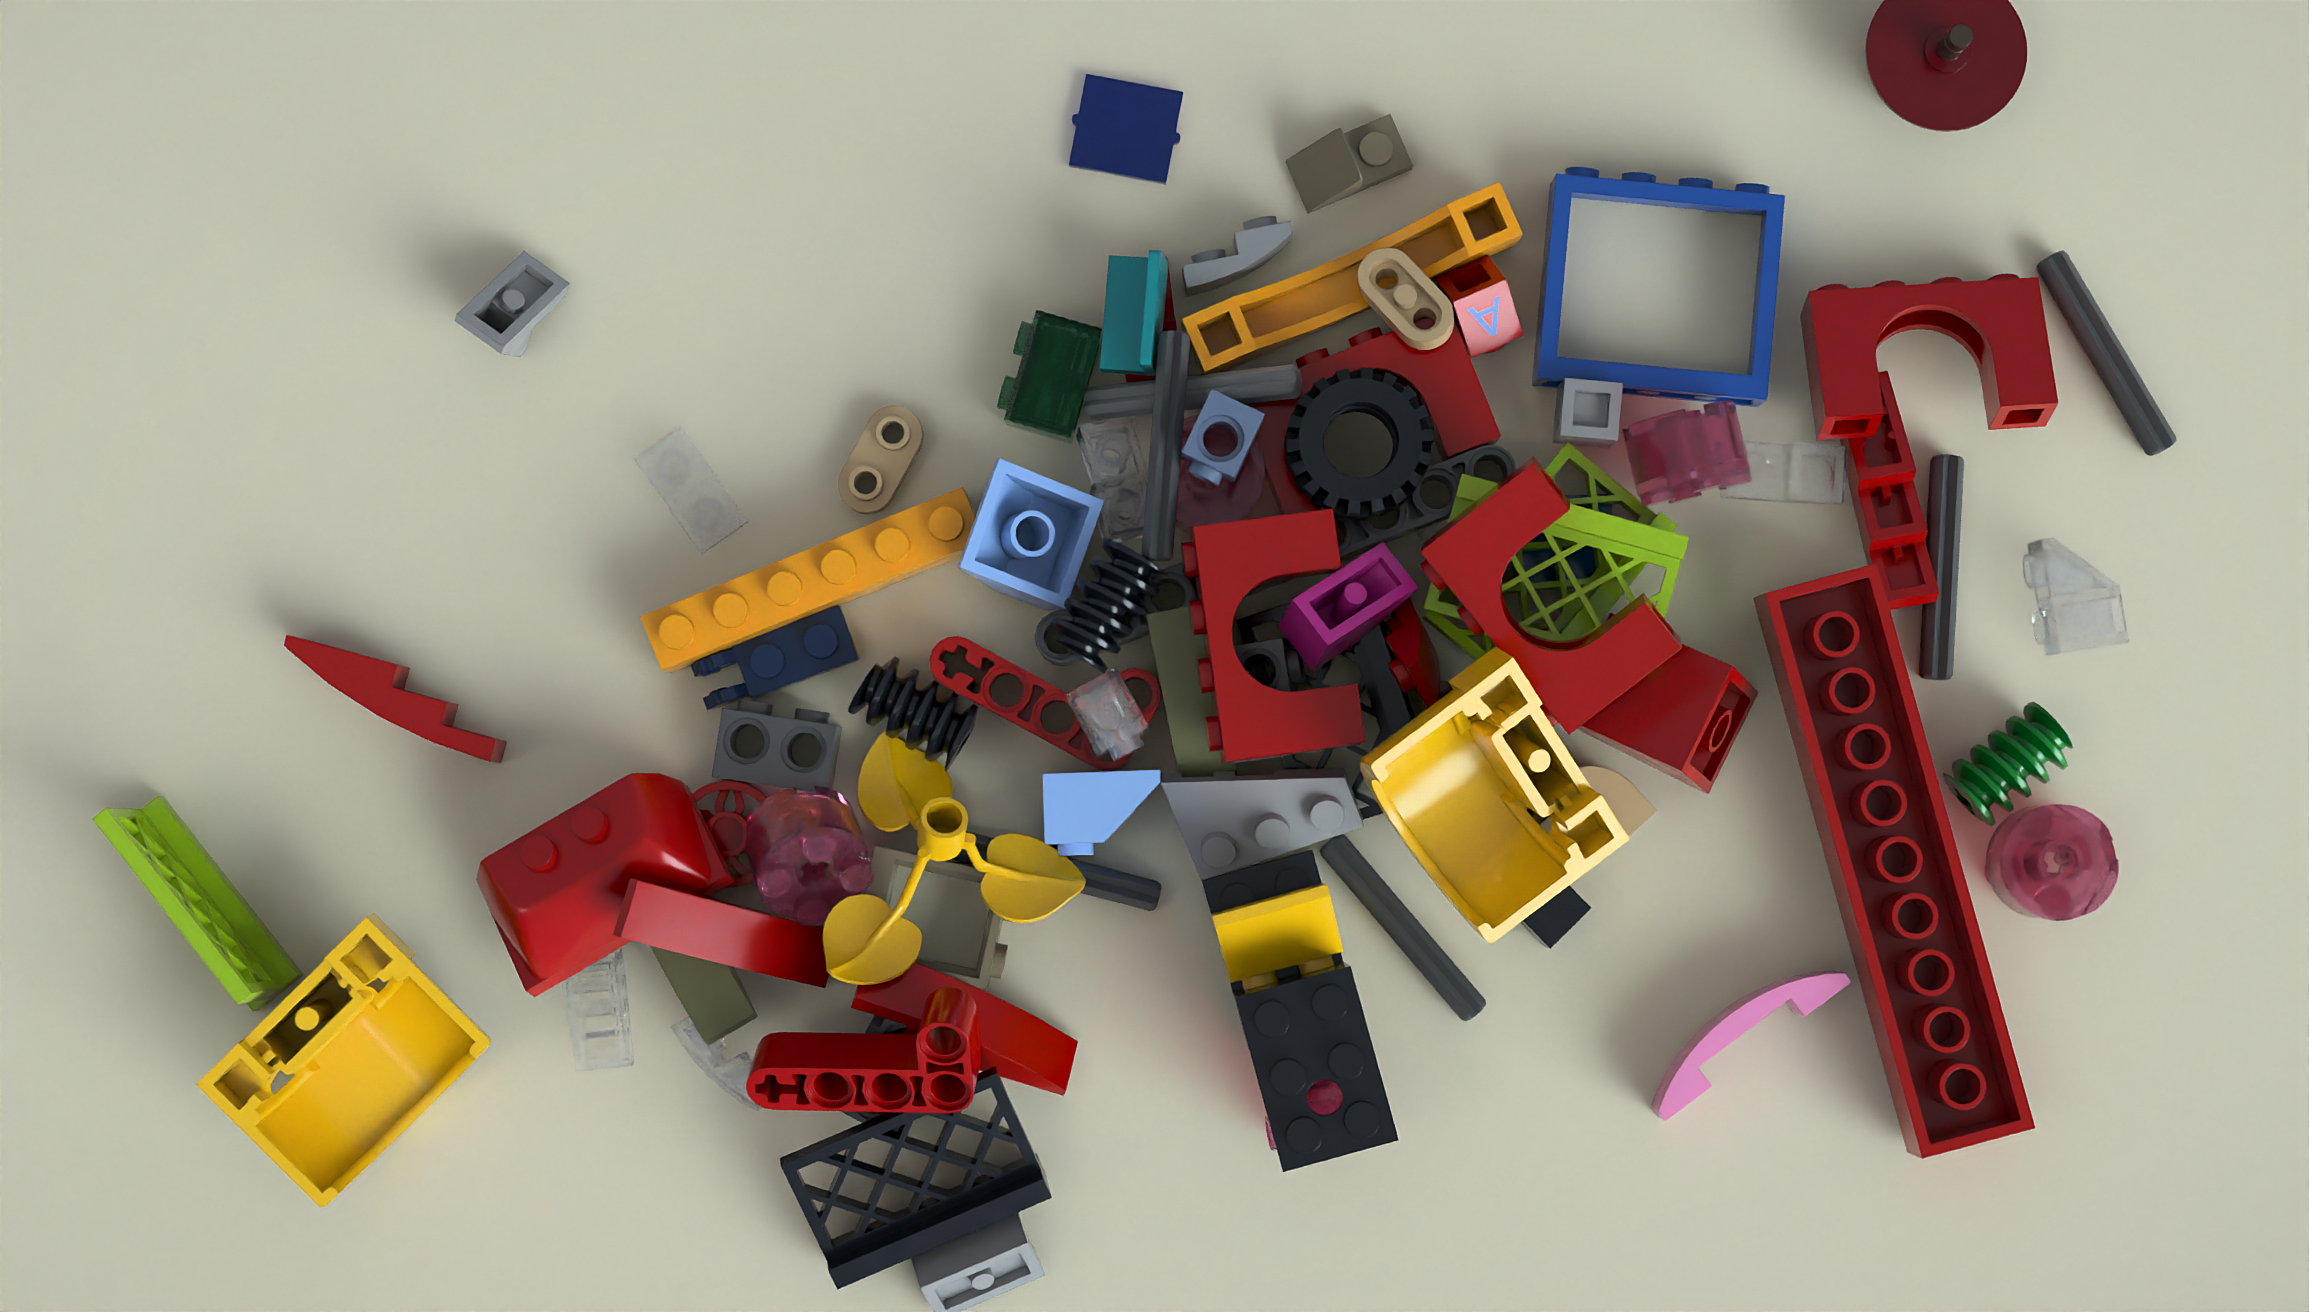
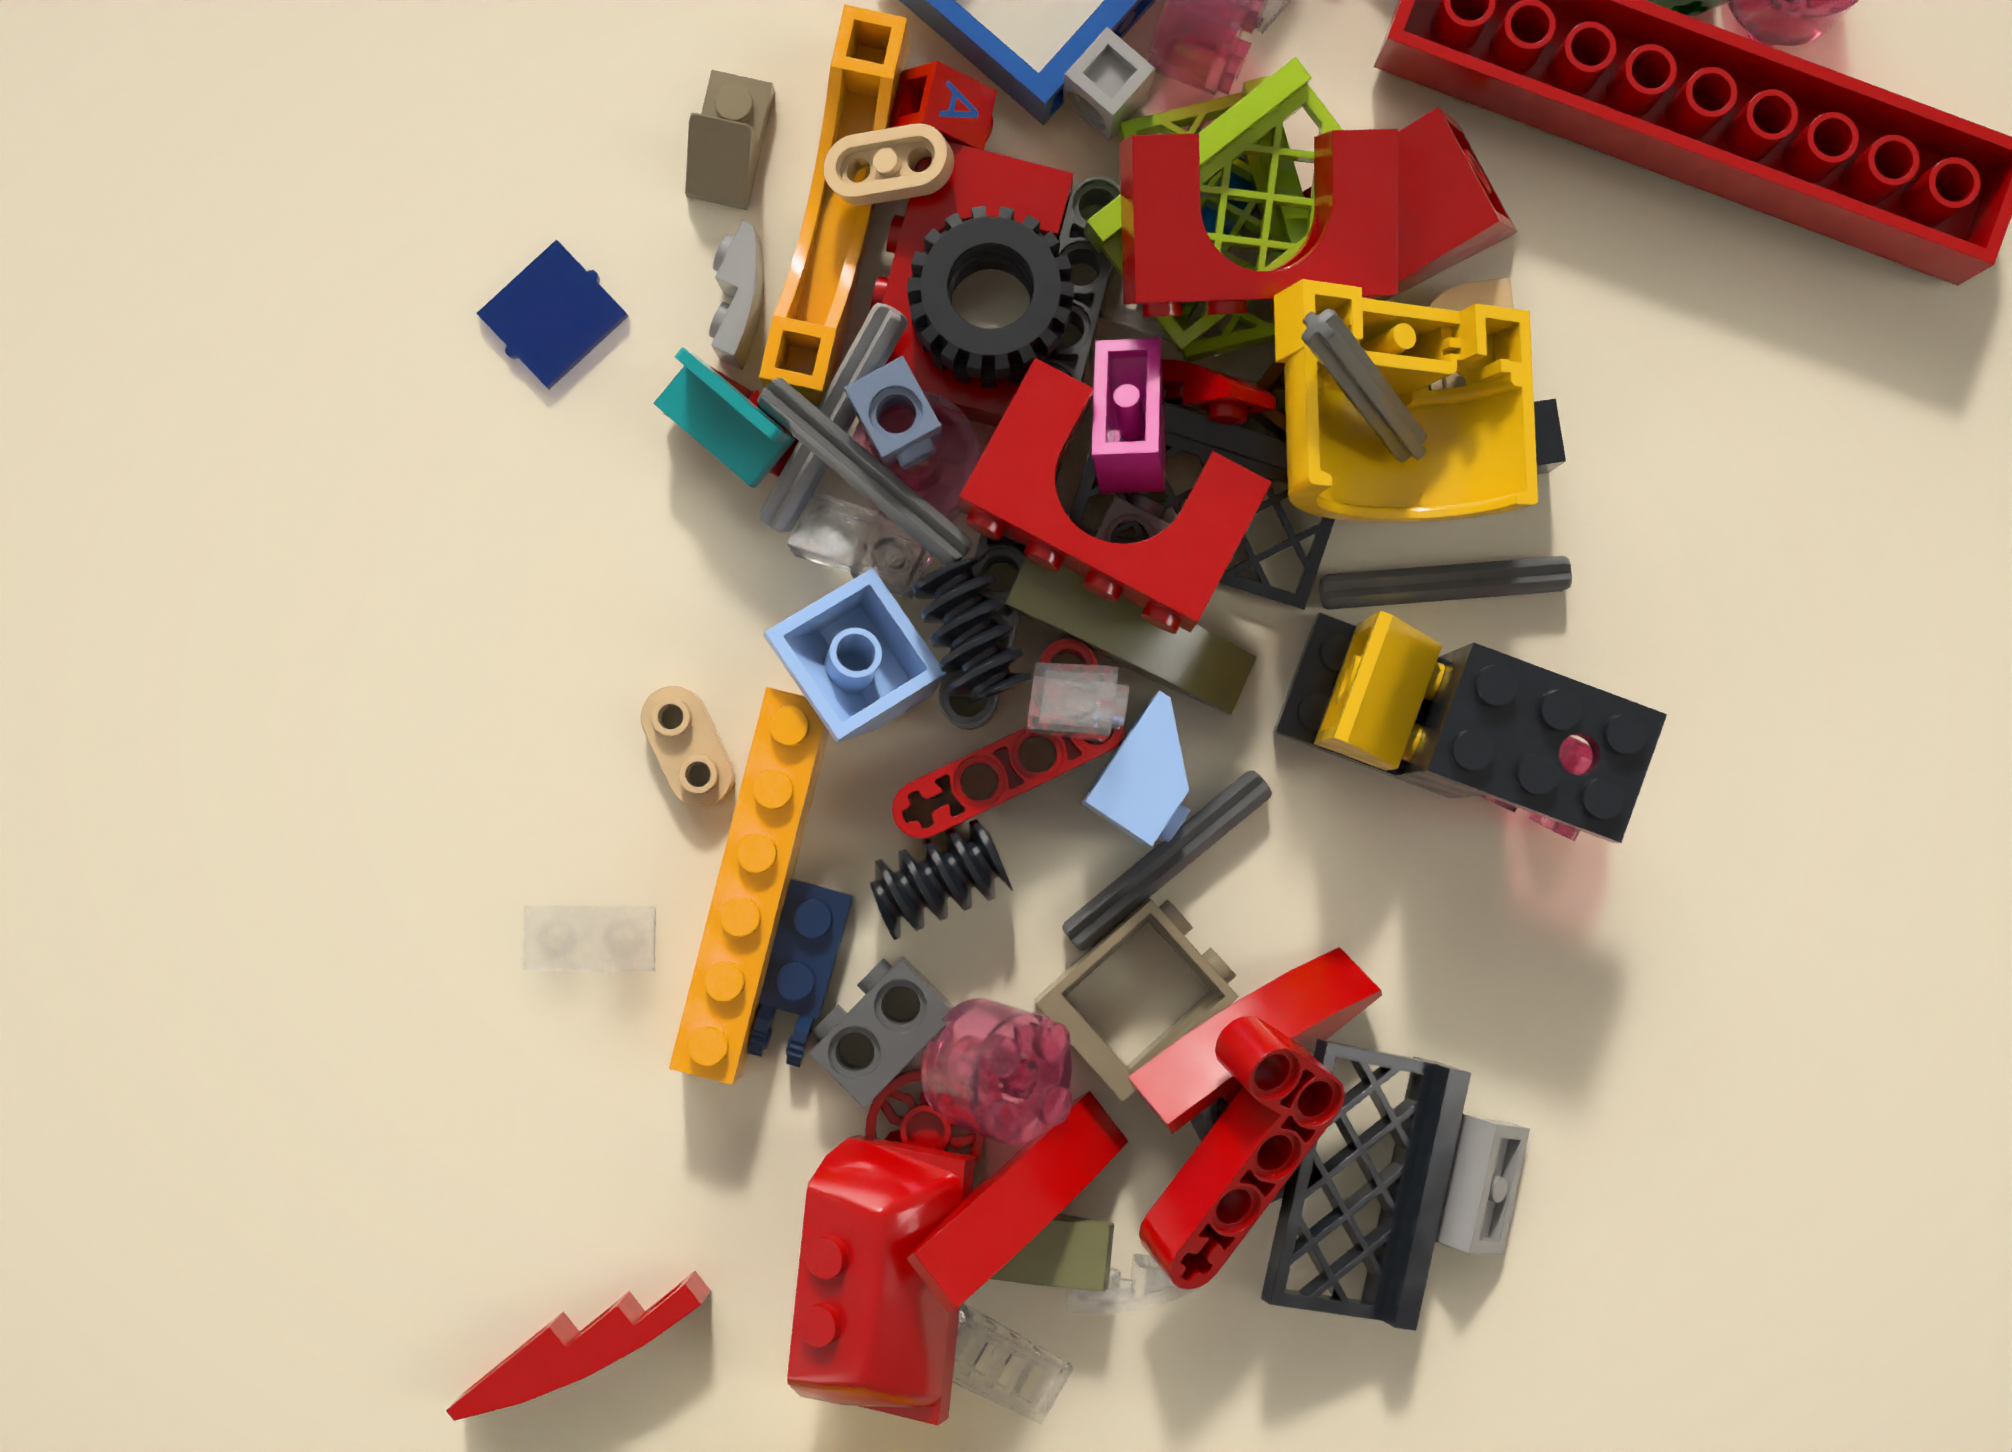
camera: 60 degrees left, 0 degrees up
(513, 305) = (298, 979): light grey slope -> none
(899, 787) = (995, 943): yellow plant -> none
(1051, 376) = (724, 537): clear green brick -> none
(1255, 817) = (1255, 643): light grey wing -> none
(1475, 757) = (1363, 384): none -> dark grey axle
(1684, 1079) = (1758, 431): bright pink slope -> none

